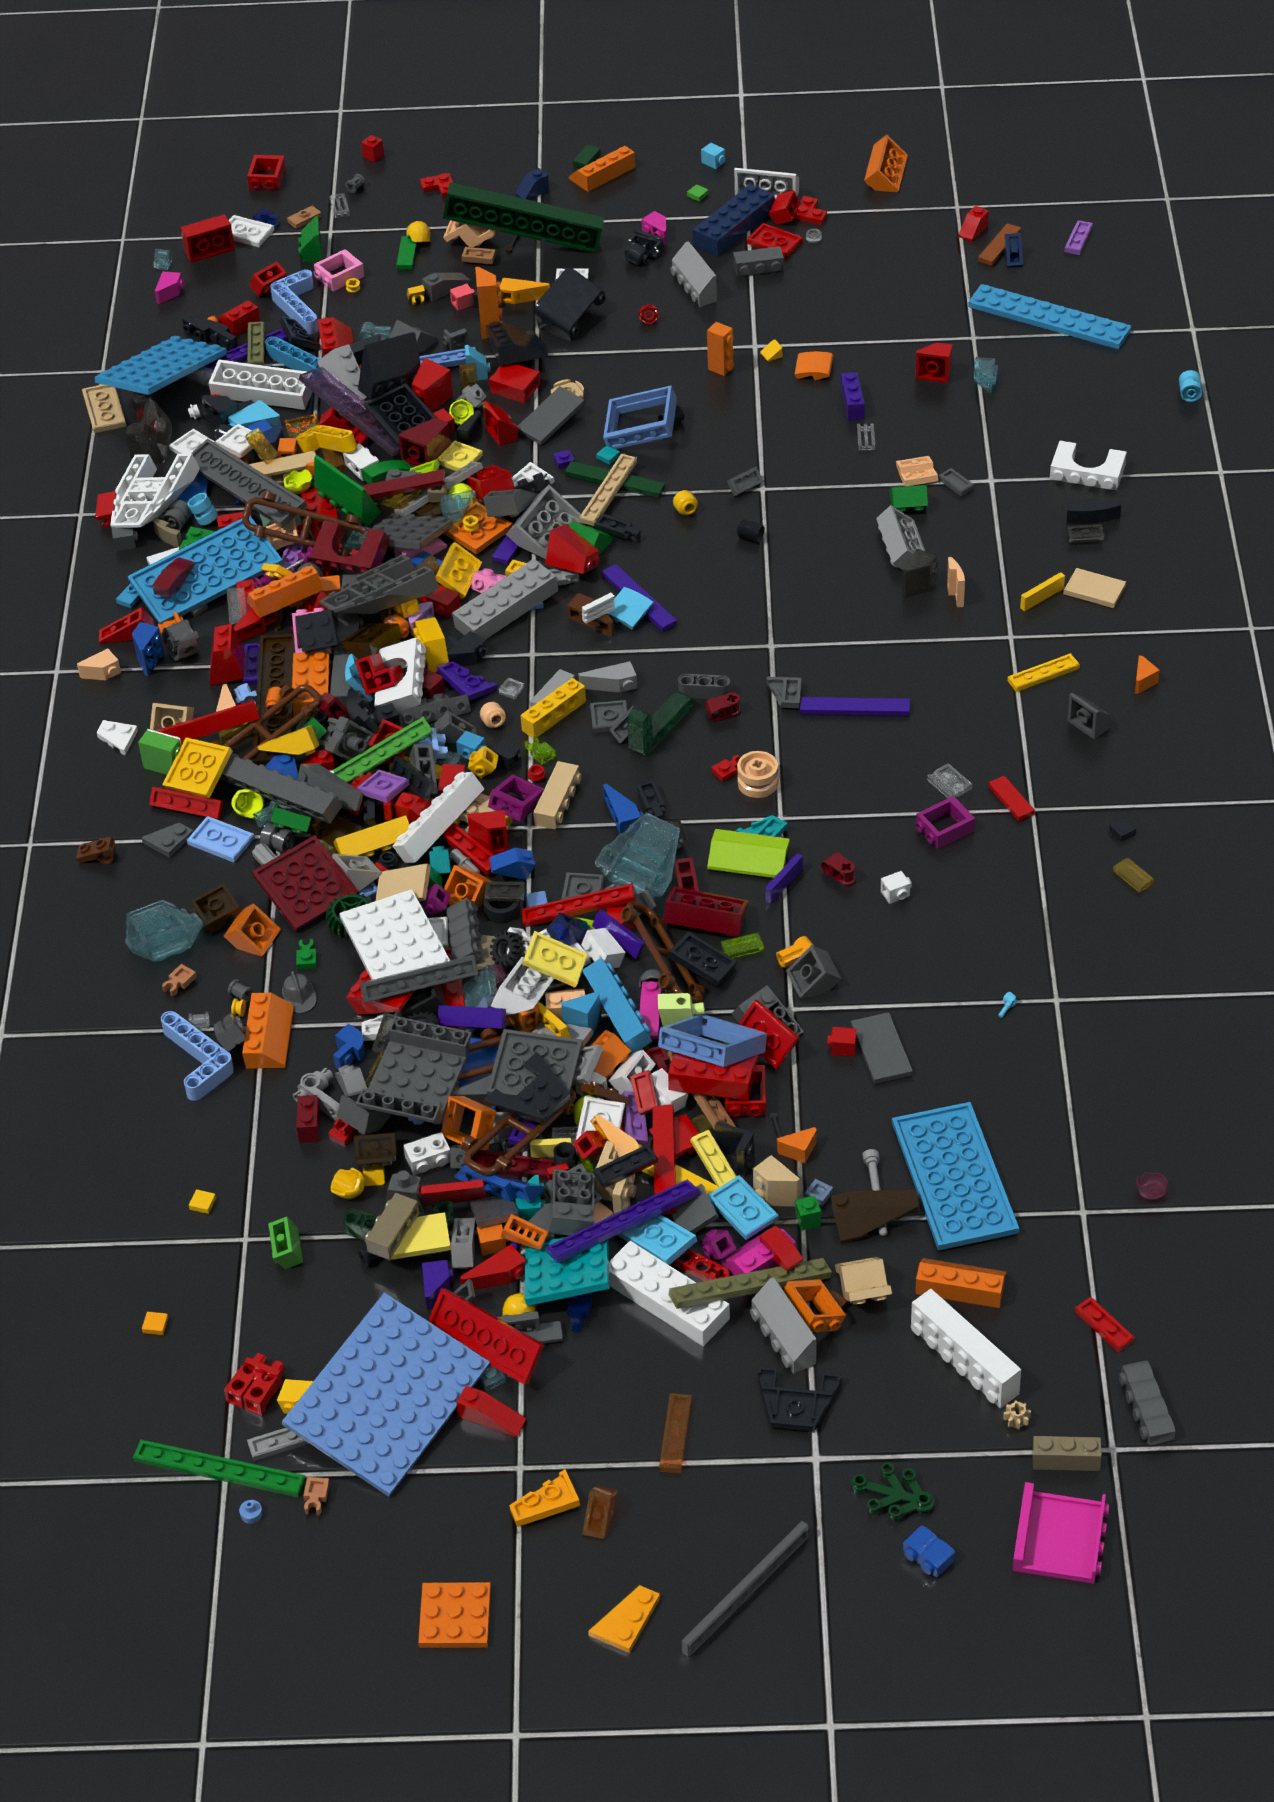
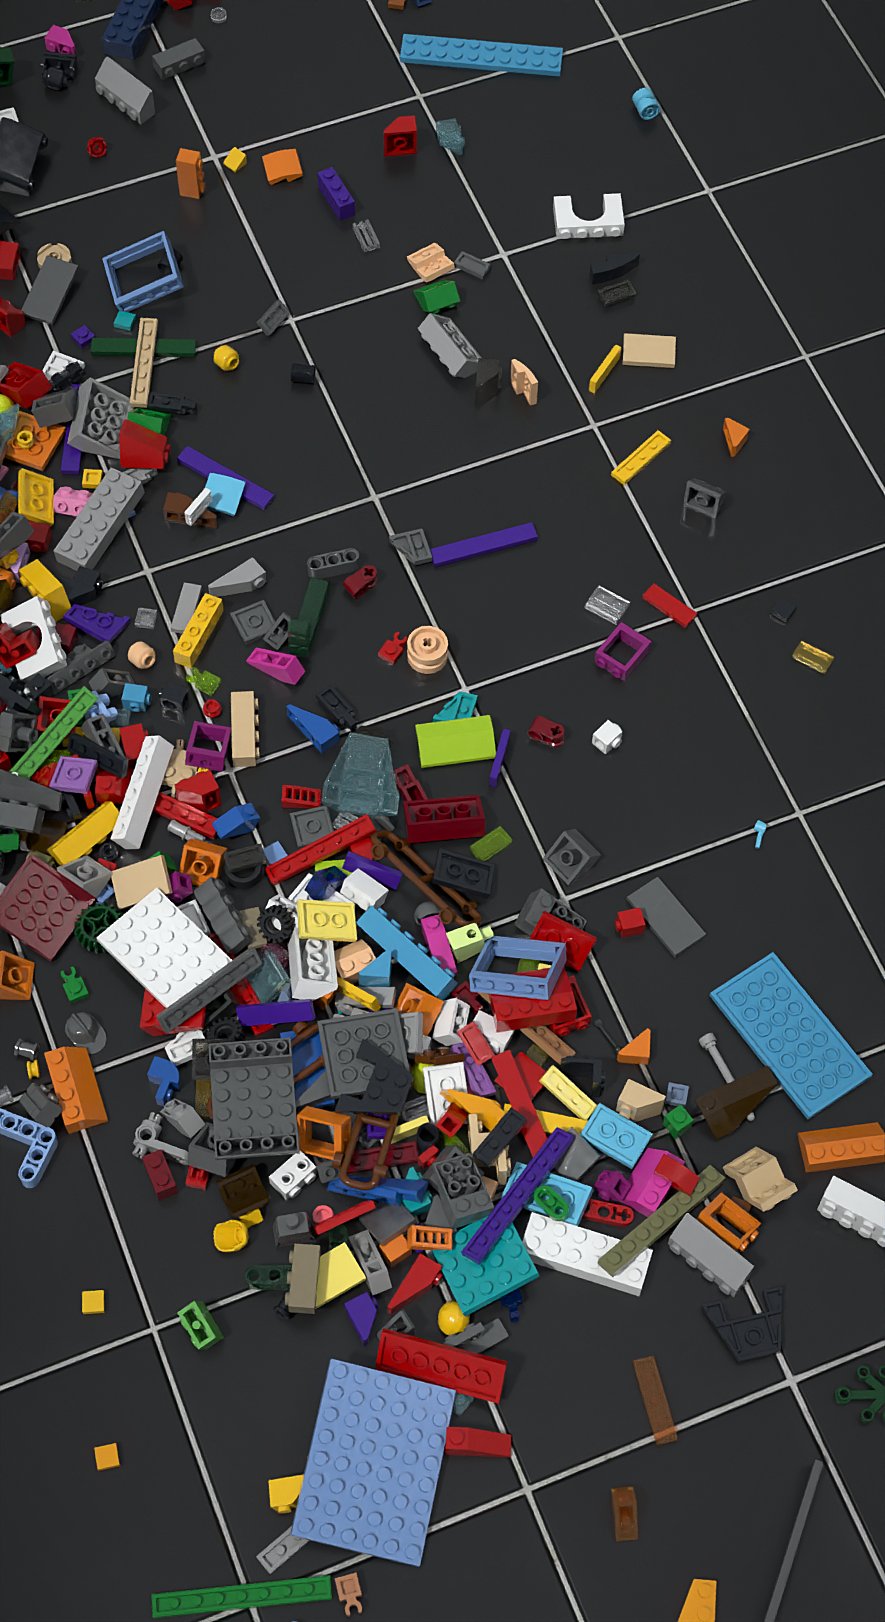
camera: 25 degrees left, 15 degrees up
(254, 1384) = (241, 1484): red hips -> none
(440, 859) = (161, 837): teal slope -> none
(483, 761) = (156, 713): yellow brick -> none
(549, 1500) = (570, 1519): light orange wing -> none
(571, 859) = (296, 790): none -> red slope
(613, 753) = (277, 664): none -> dark pink slope
(650, 1236) = (552, 1204): none -> green plate
(769, 236) = (182, 28): red tile -> none
(789, 955) = (546, 837): light orange piece -> none

